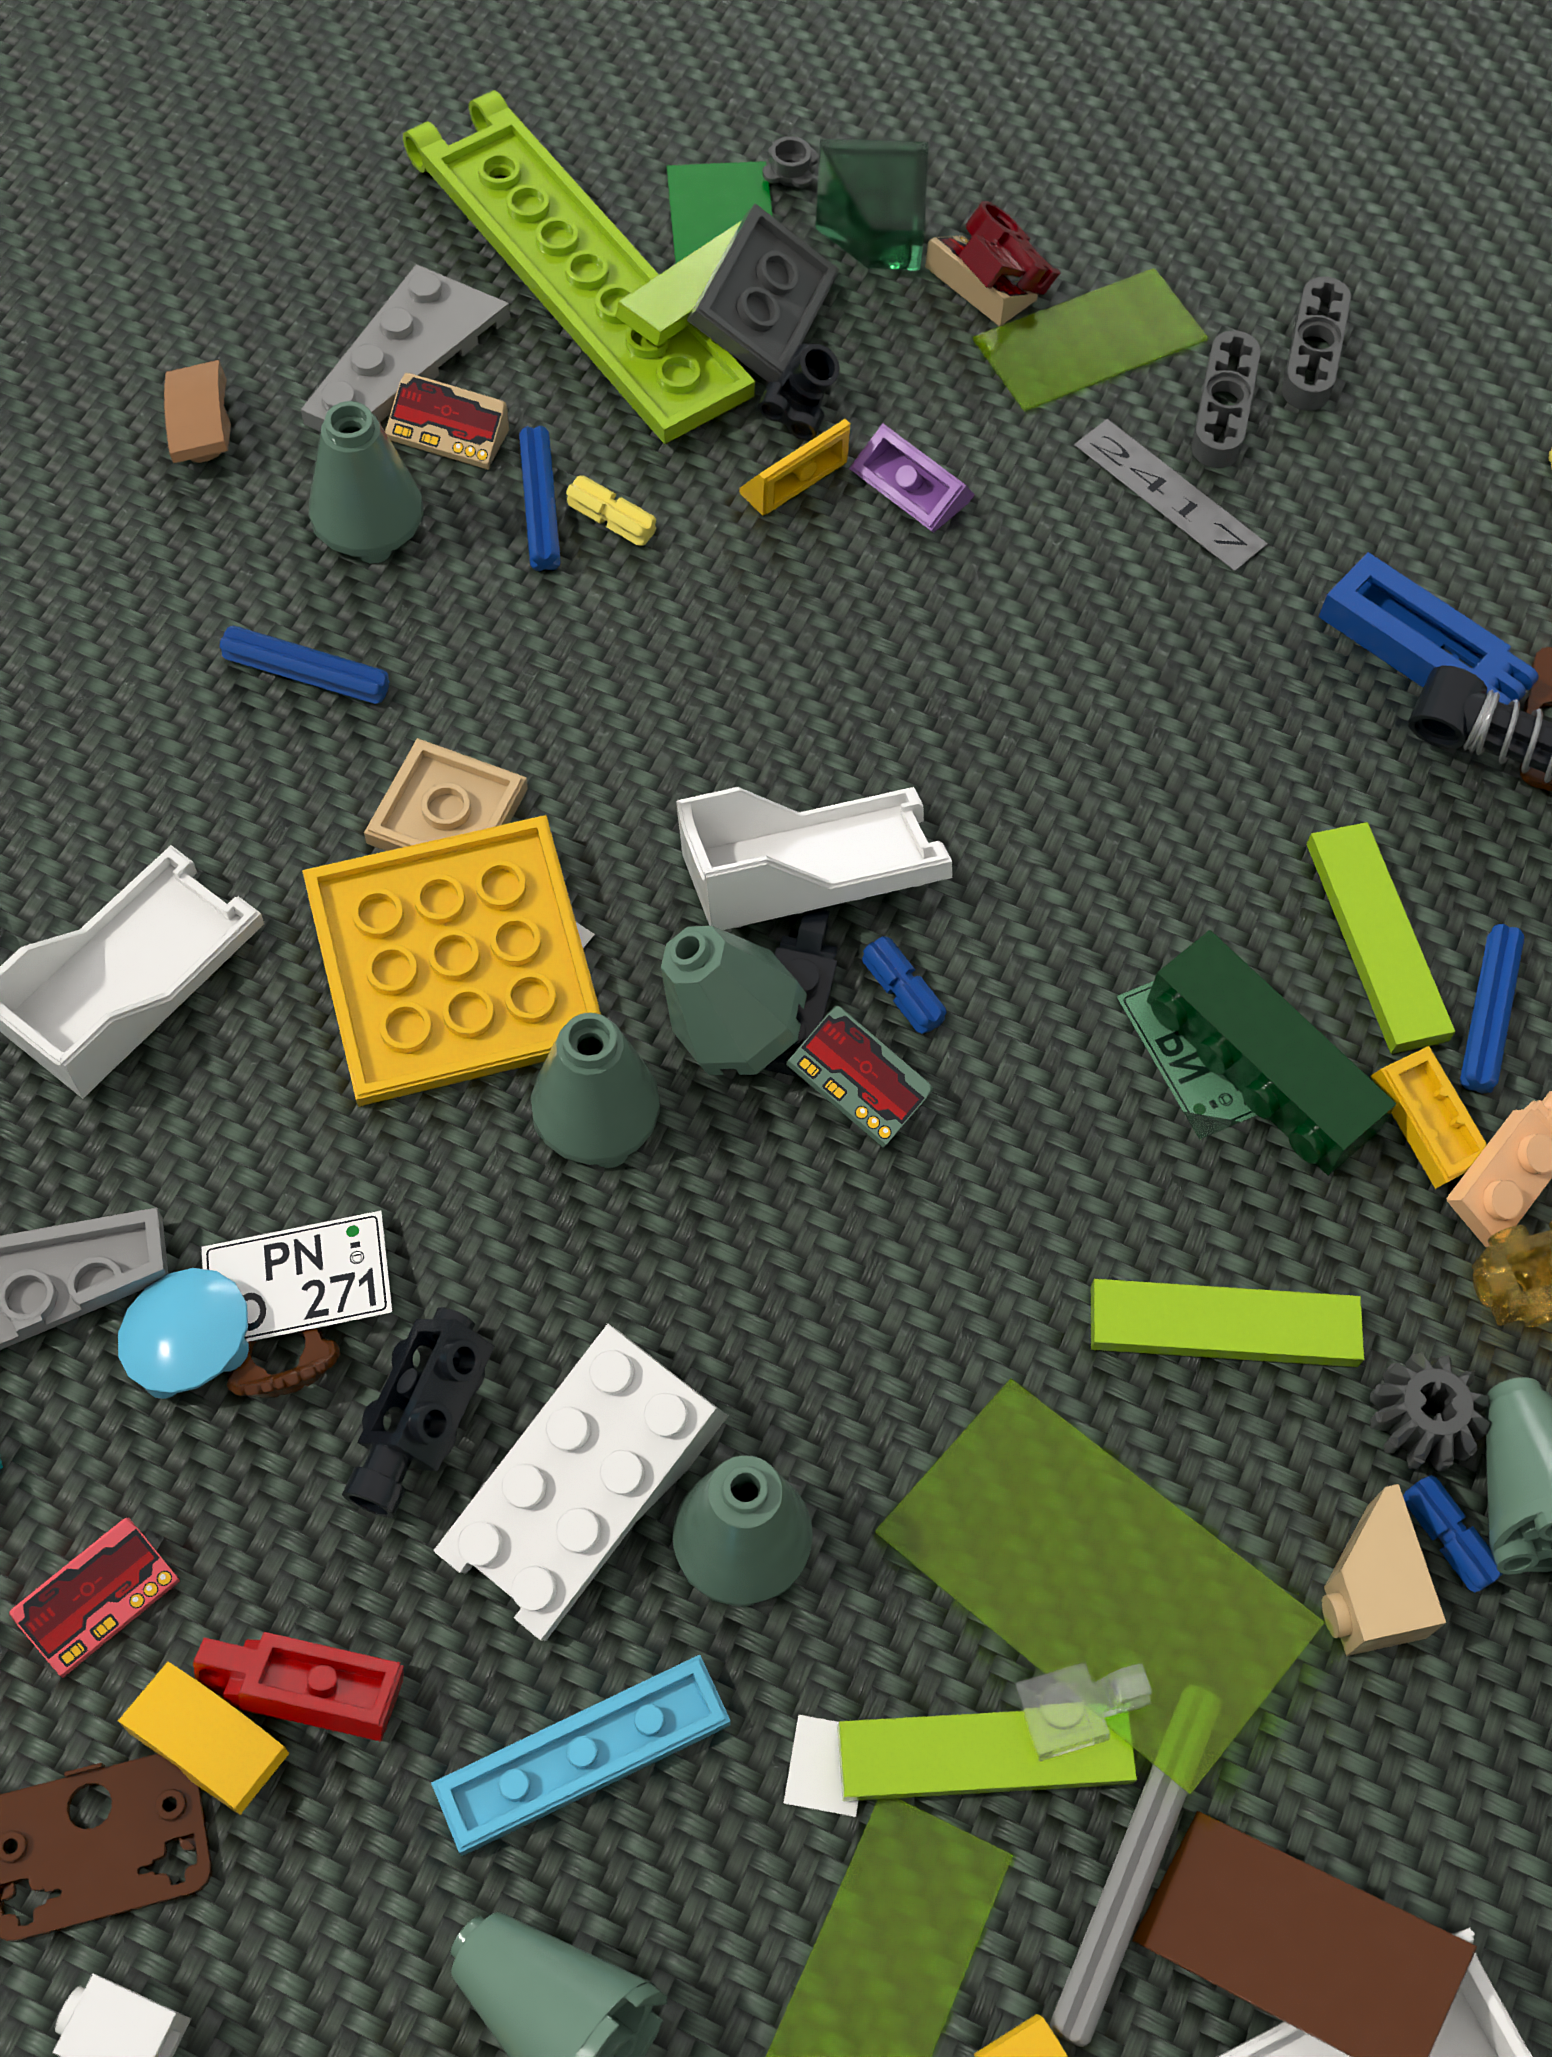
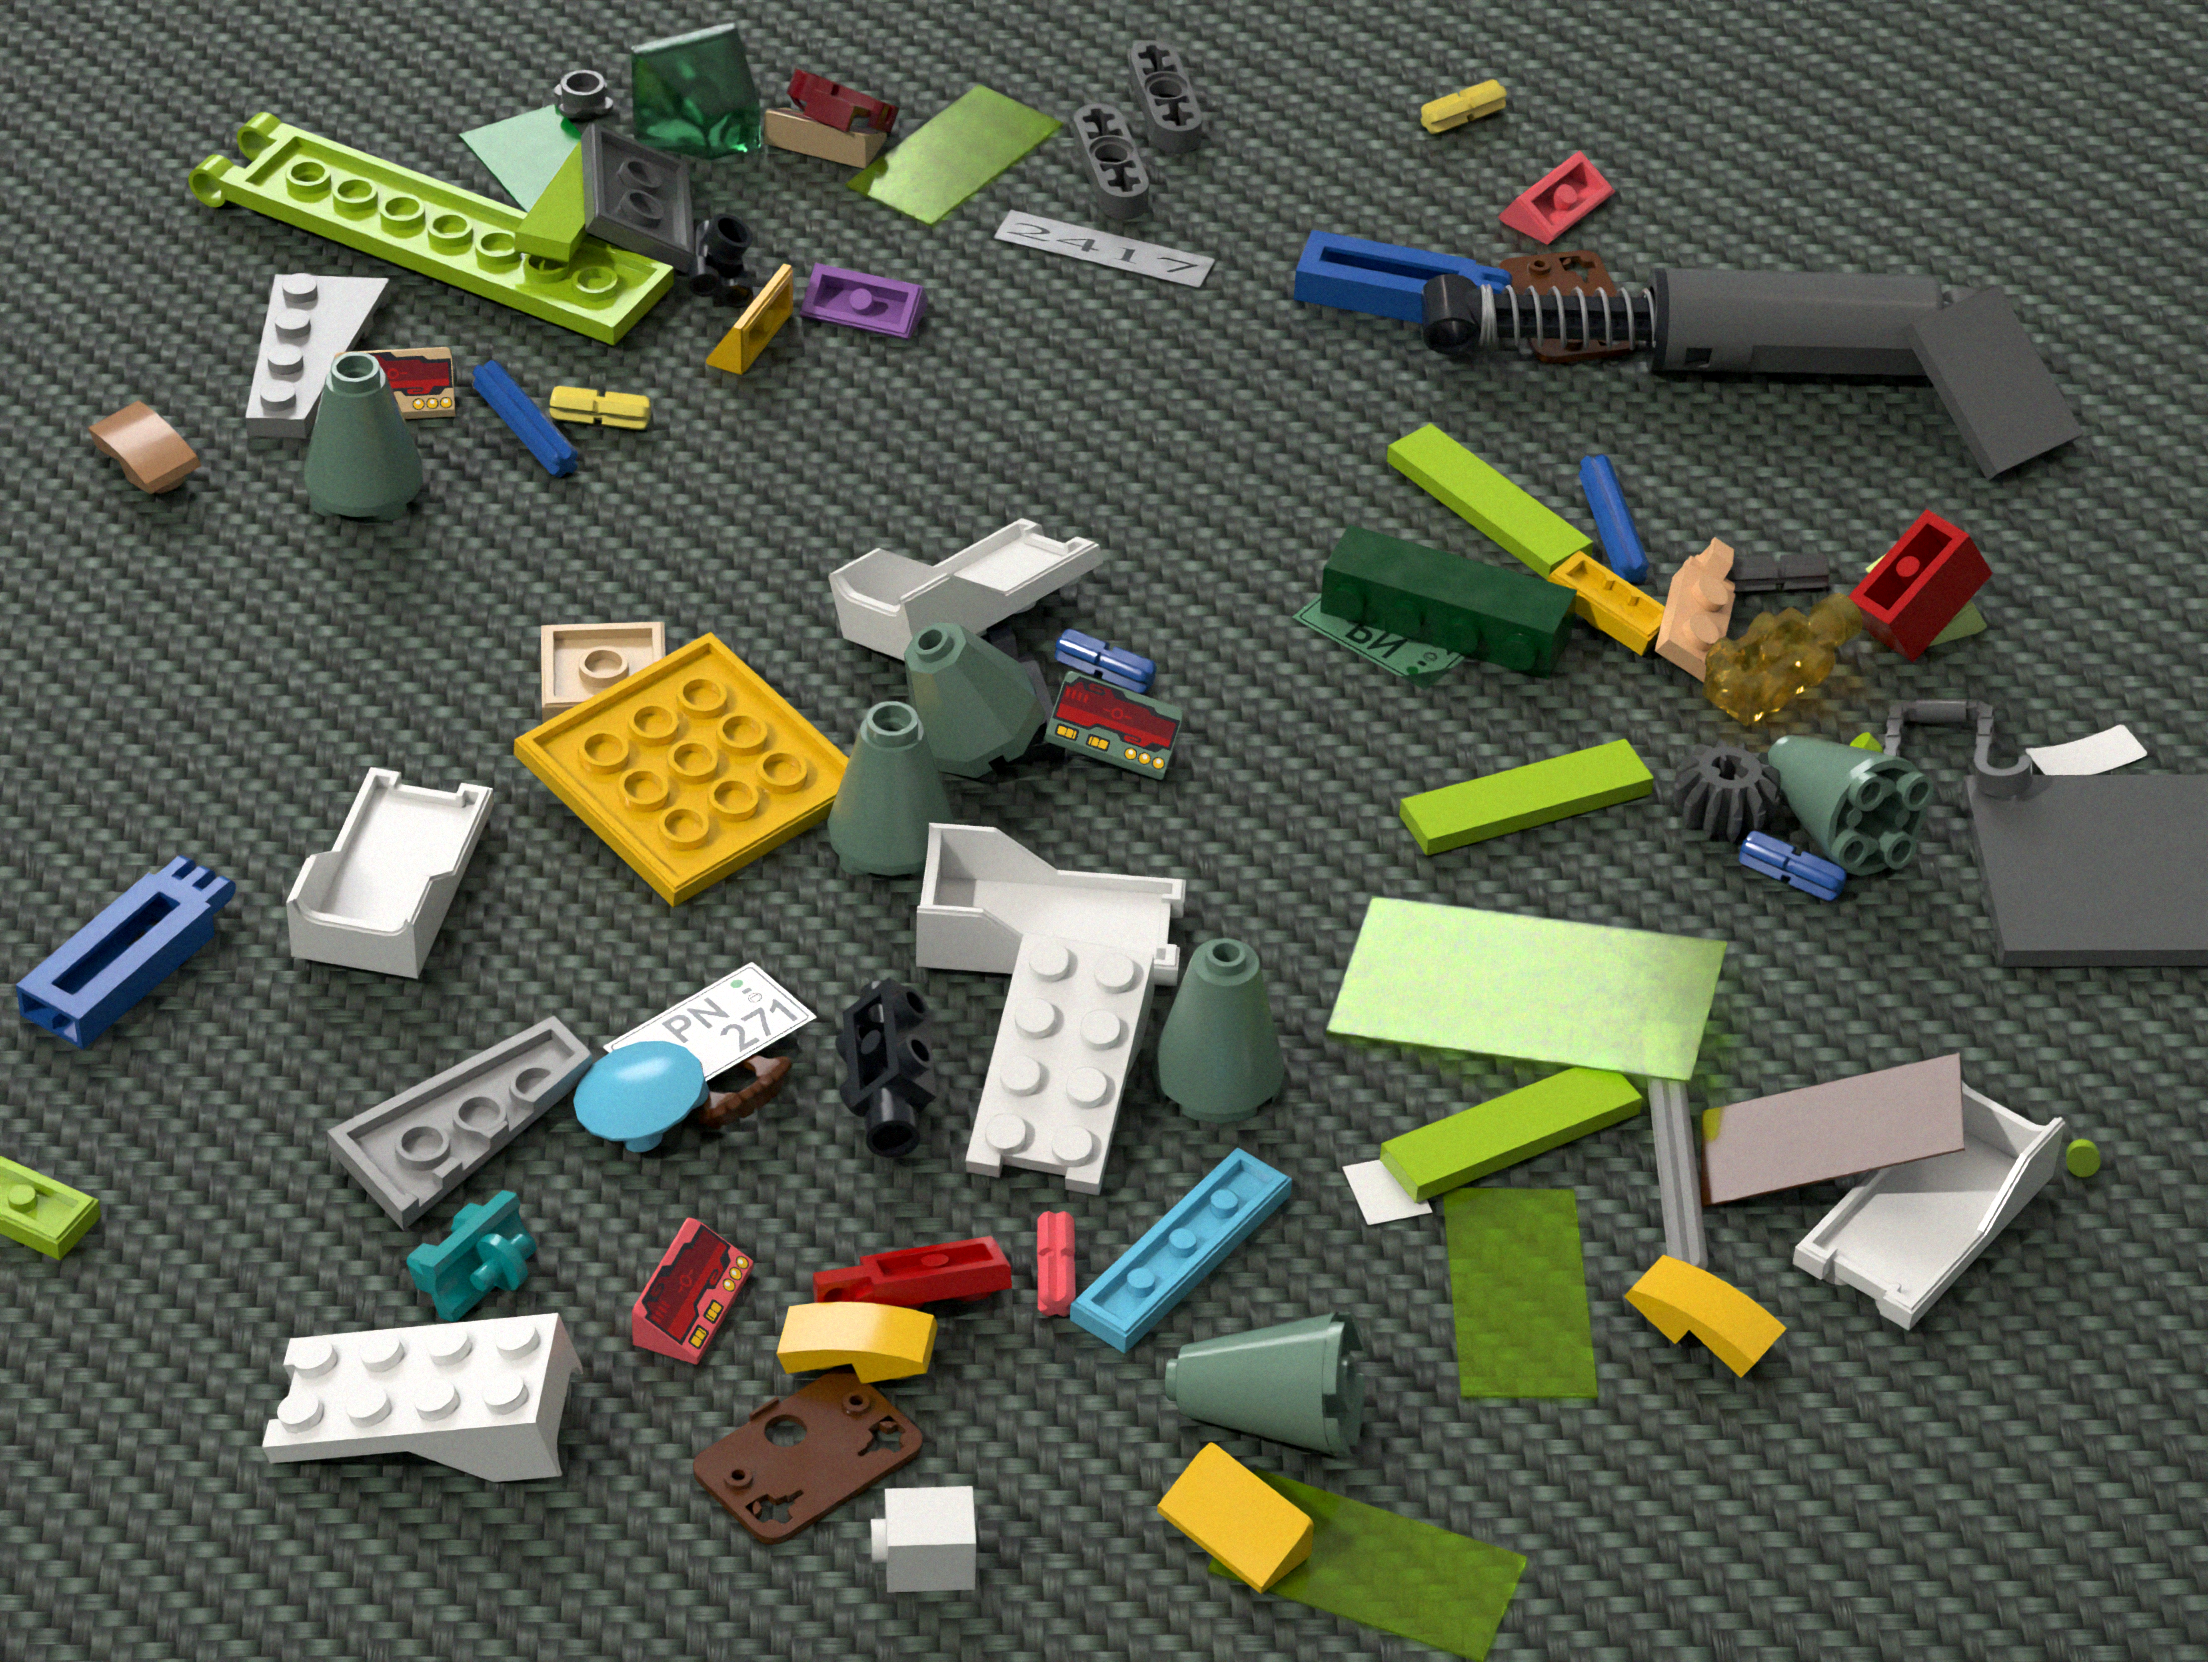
camera: 25 degrees left, 20 degrees down
(304, 664) = (391, 607): blue axle -> none
(442, 1733) = (1056, 1263): none -> coral piece
(669, 1281) = (991, 889): none -> white piece
(1070, 1710) = (1565, 1062): clear plate -> none
(1381, 1582) = (1760, 908): tan slope -> none

